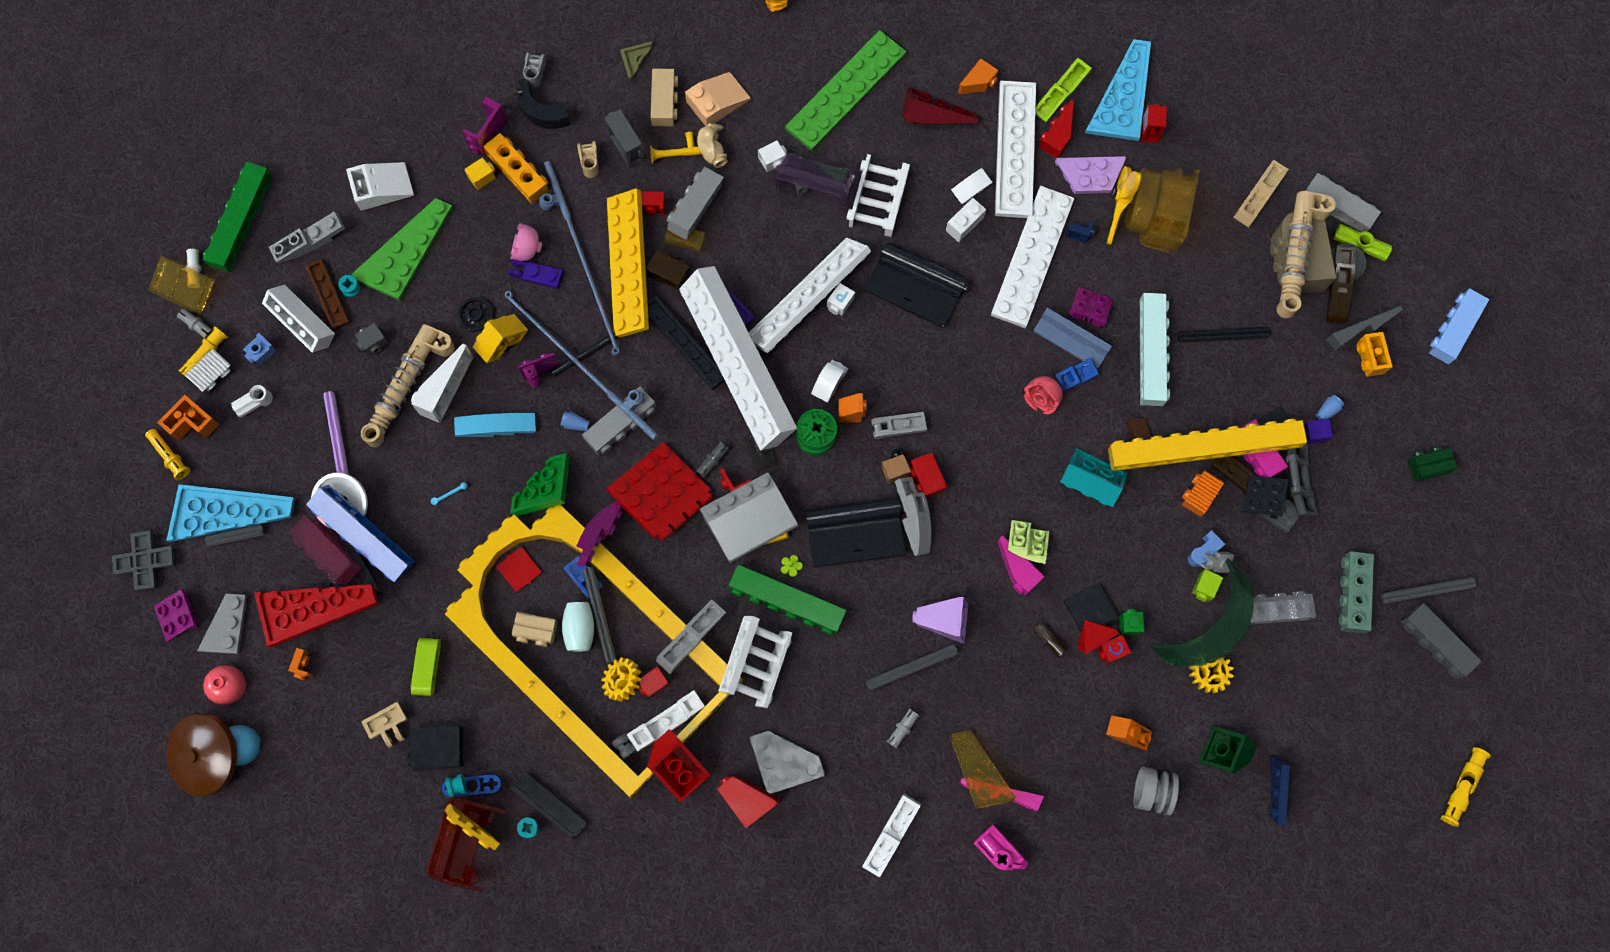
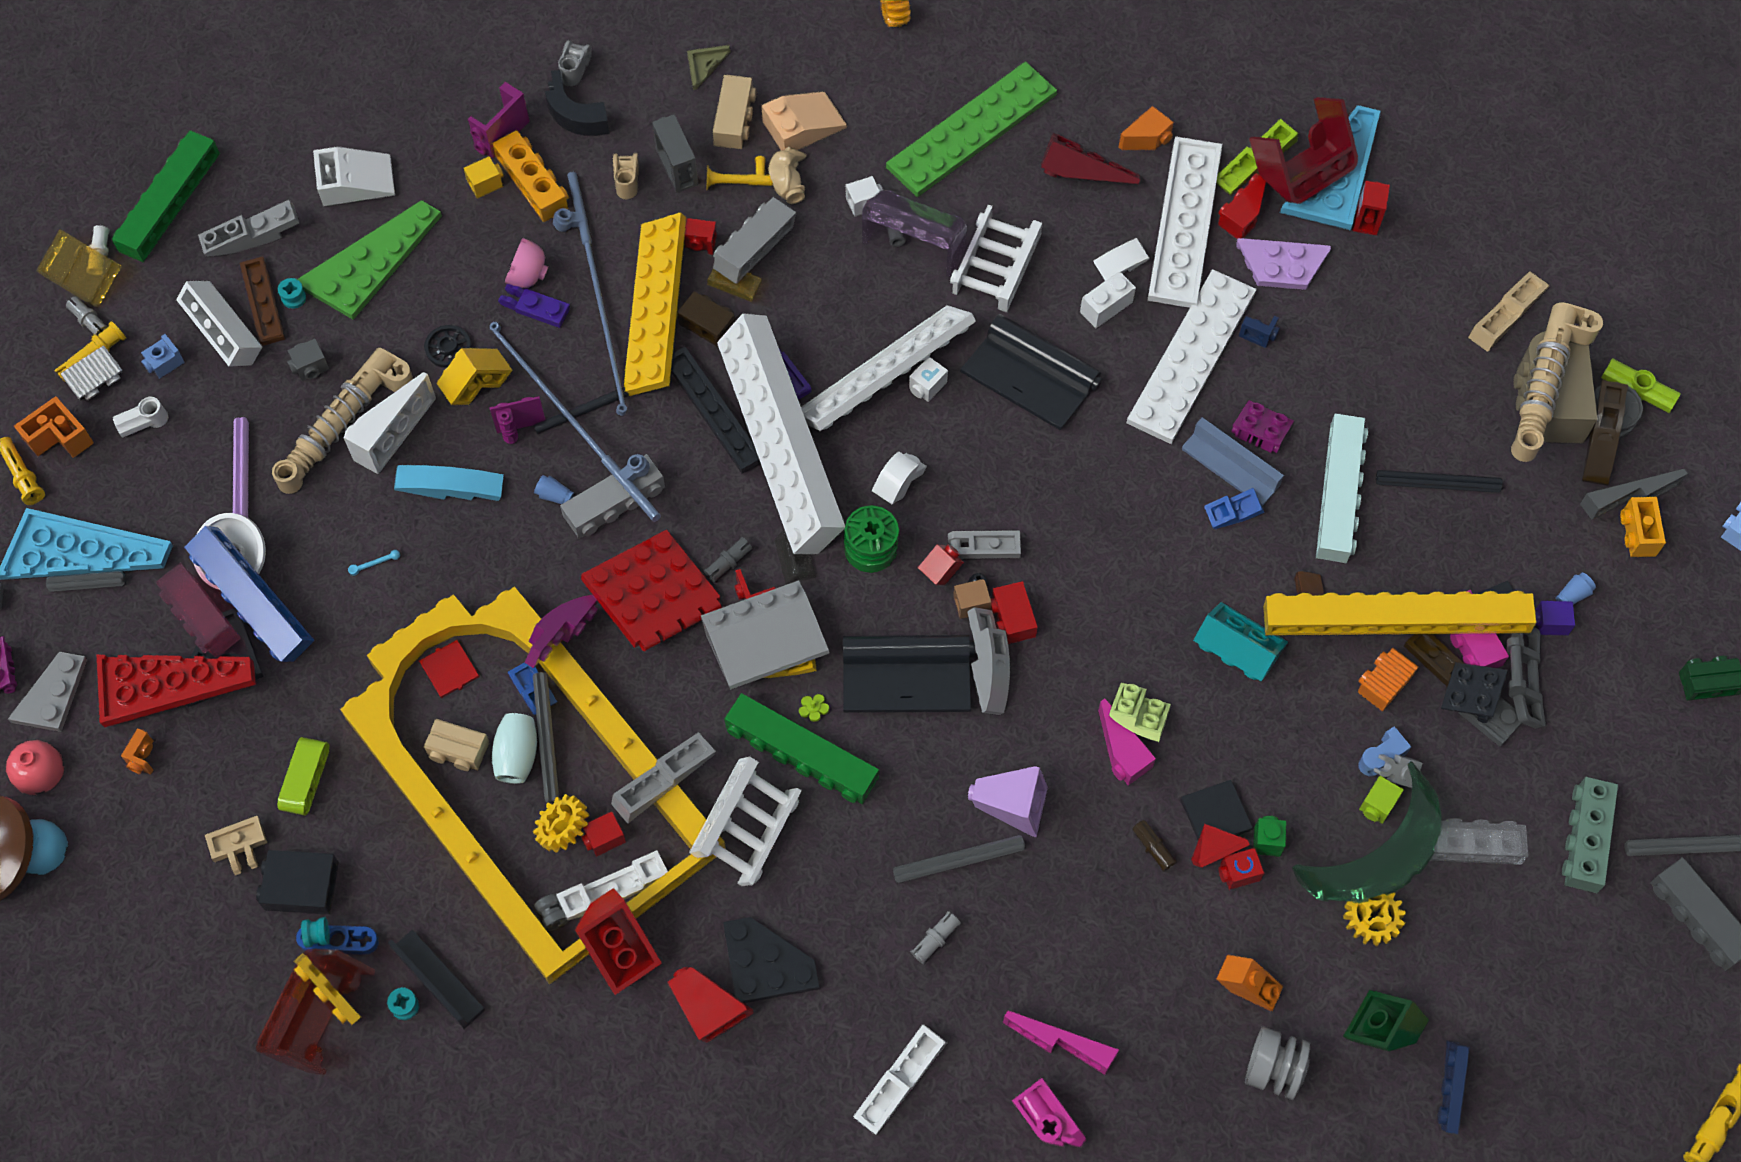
camera: 10 degrees right, 10 degrees down
(544, 488) = (499, 568): green plate -> none
(851, 409) = (923, 515): orange slope -> none
(870, 445) = (941, 564): none -> brick
(981, 775) = (1033, 1008): clear yellow wing -> none
(1043, 393) = (1184, 526): coral cylinder -> none
(1111, 93) = (1326, 160): none -> dark red windscreen
(1156, 205) = (1362, 310): clear yellow brick -> none
(1348, 207) = (1622, 337): light grey brick -> none

